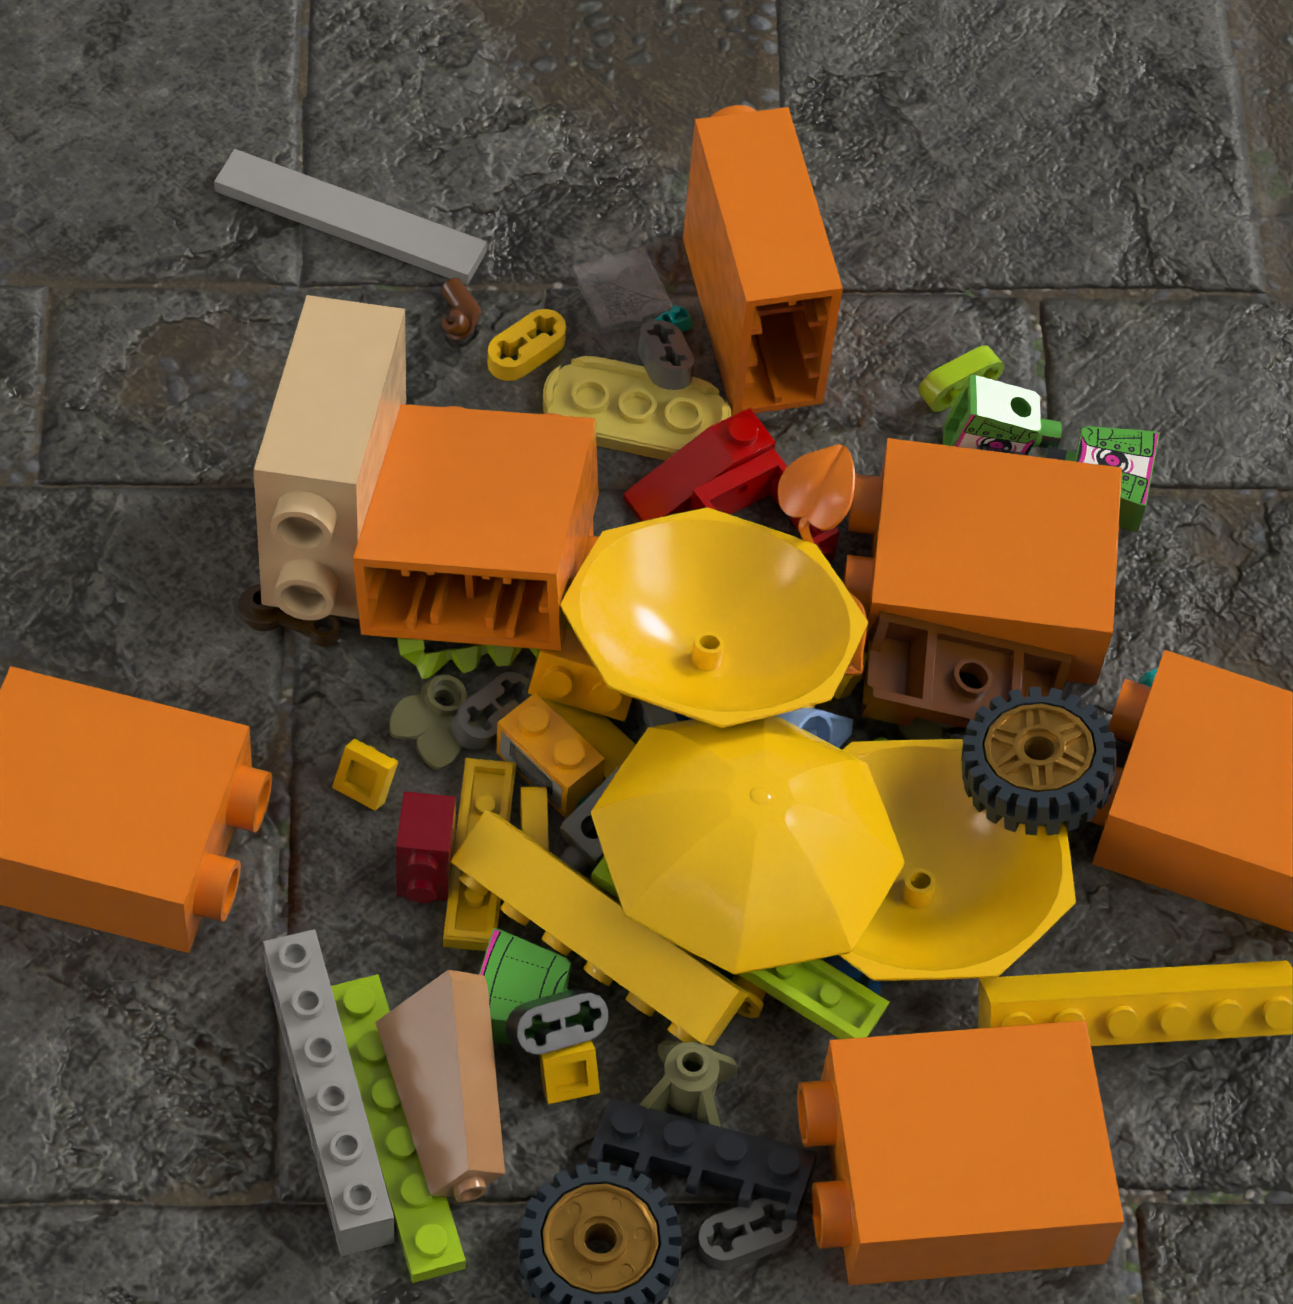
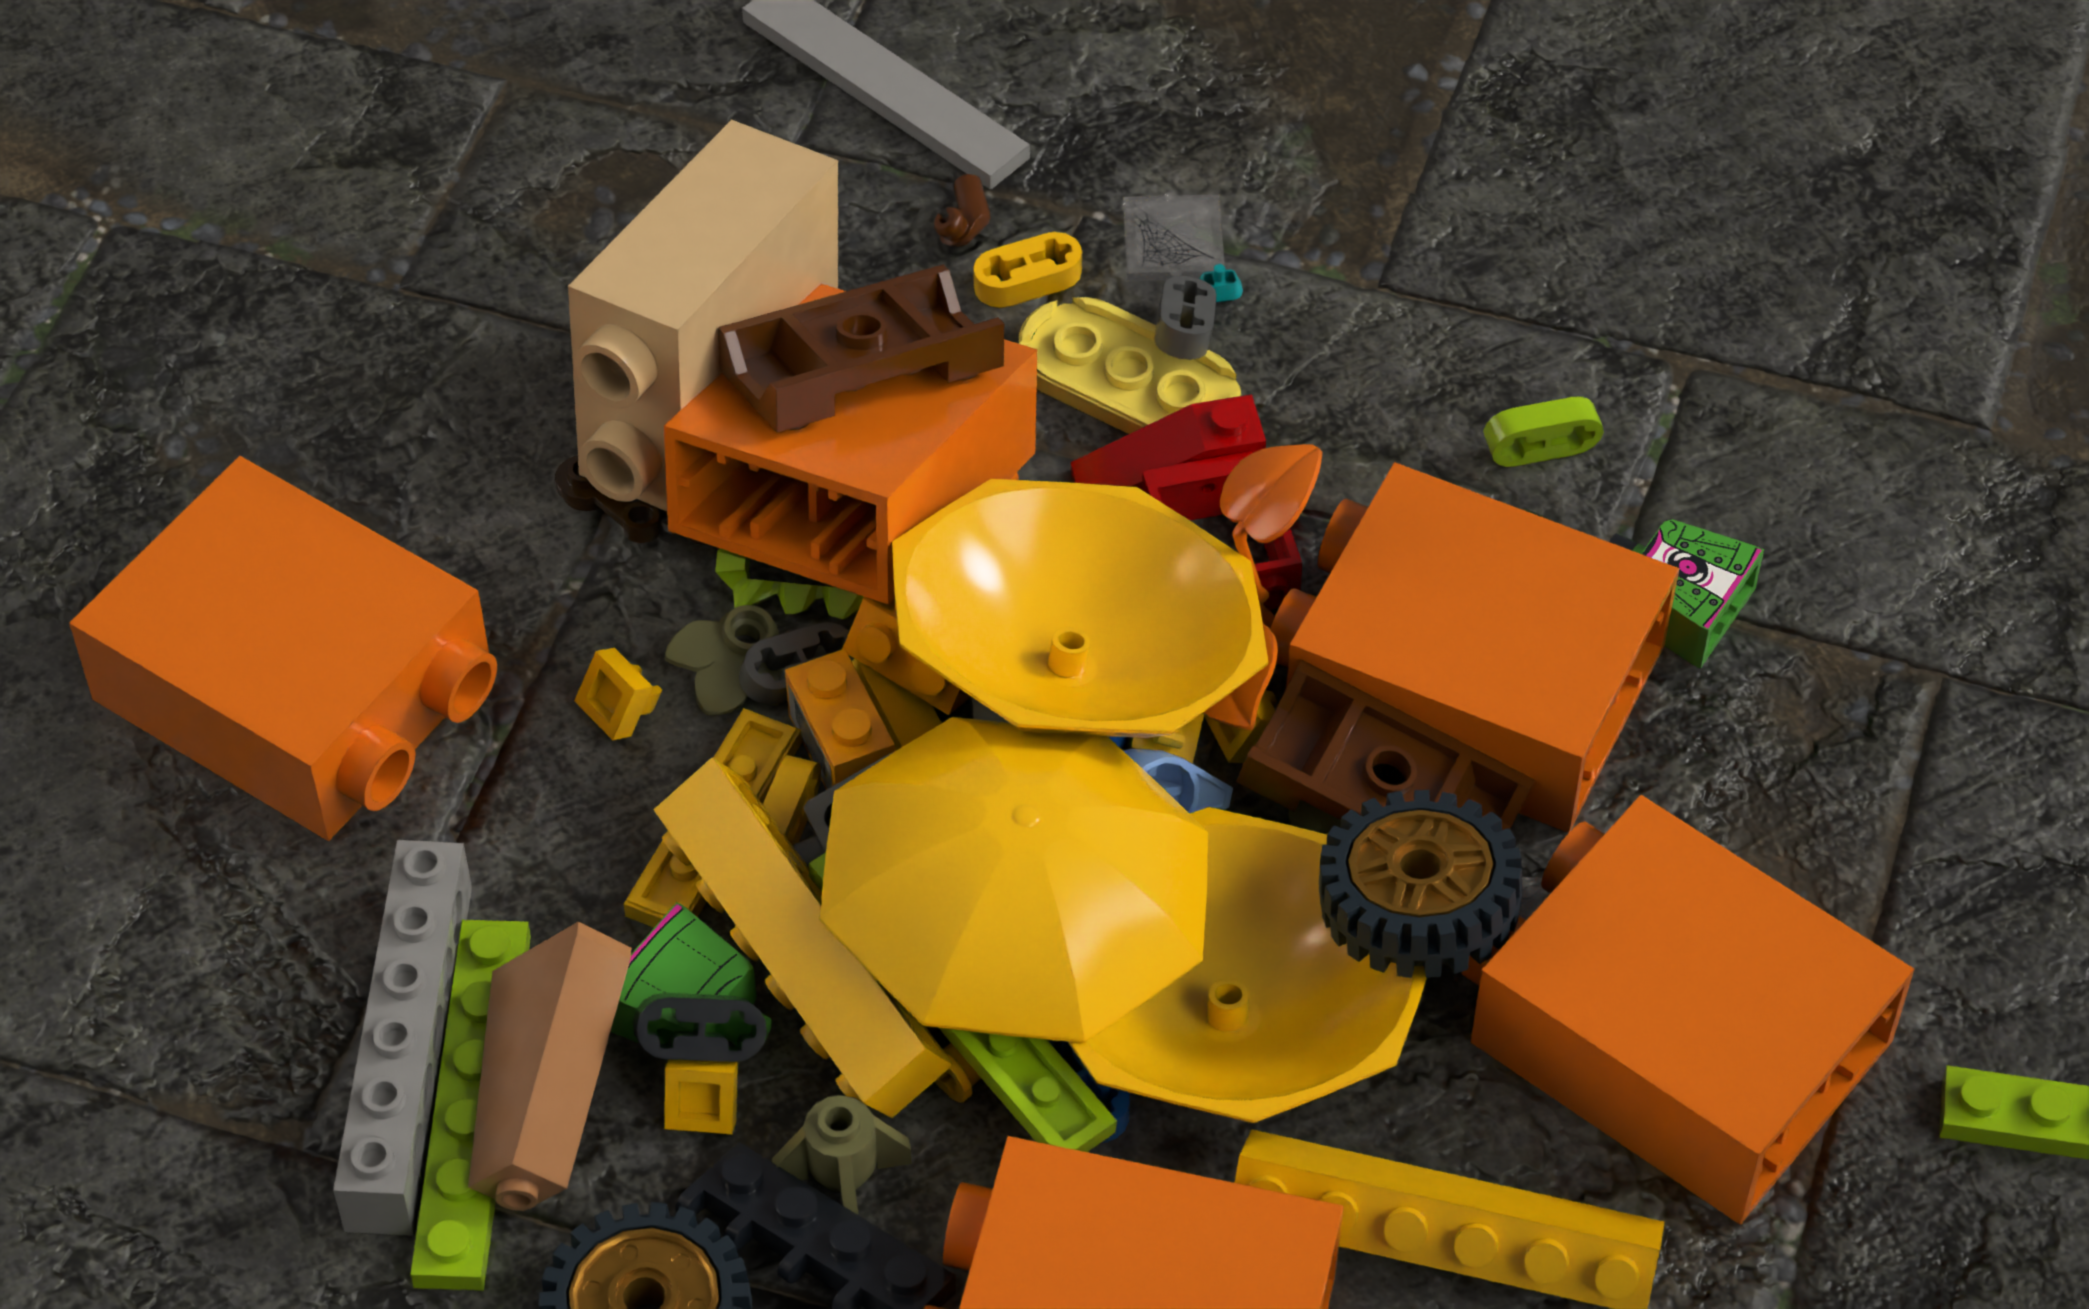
camera: 25 degrees right, 5 degrees down
(425, 846) = (631, 777): dark red brick -> none
(470, 454) = (806, 353): none -> reddish brown piece
(760, 260) = (1323, 225): orange brick -> none
(998, 417) = (1567, 482): bright green torso -> none

